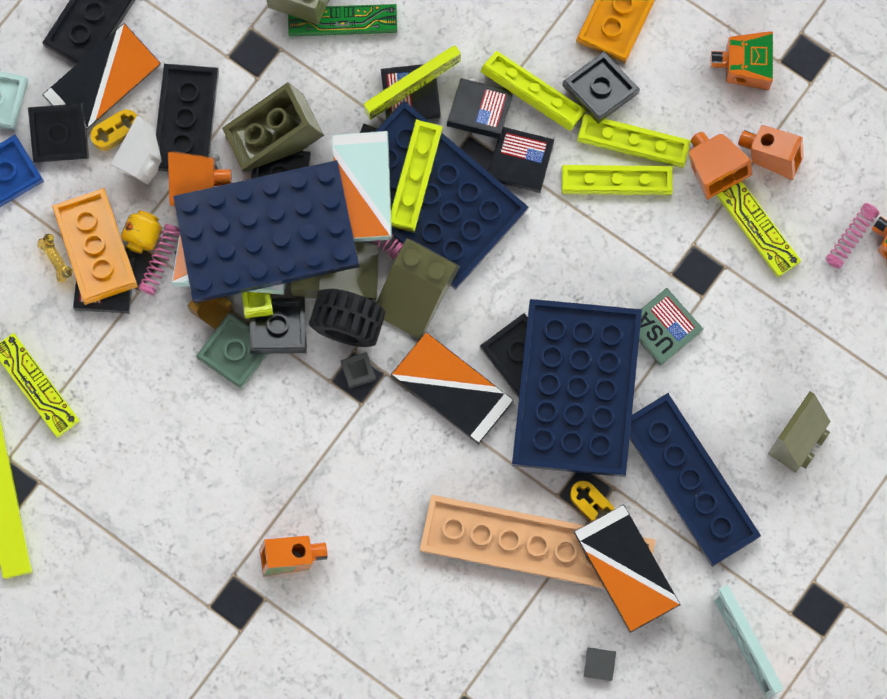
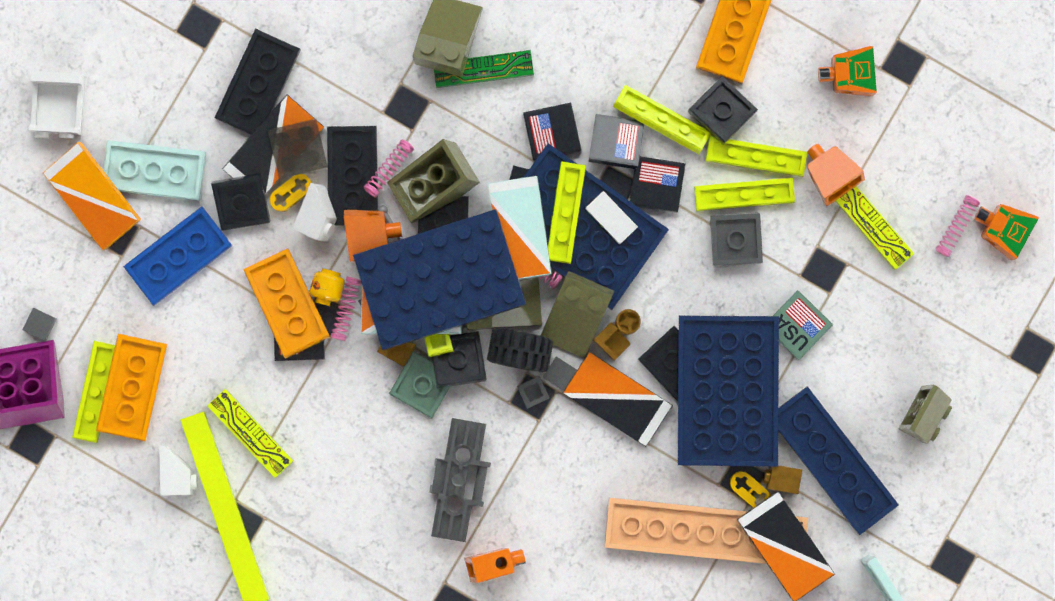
camera: 10 degrees left, 10 degrees up
(62, 270) = (244, 305): clear yellow piece -> none
(127, 80) = (297, 148): none -> clear smoke plate
(199, 127) = (405, 146): none -> bright pink piece
(254, 454) = (451, 480): none -> dark grey piece
(390, 353) = (559, 373): none -> dark grey tile
(412, 82) = (553, 125): neon yellow tile -> none
(451, 323) = (612, 341): none -> pearl gold panel
(465, 186) = (611, 217): none -> white tile
(472, 297) = (628, 318): none -> pearl gold wheel
(603, 226) = (736, 239): none -> dark grey plate
(631, 492) = (783, 479): none -> pearl gold brick
(774, 150) = (891, 161): orange torso -> none

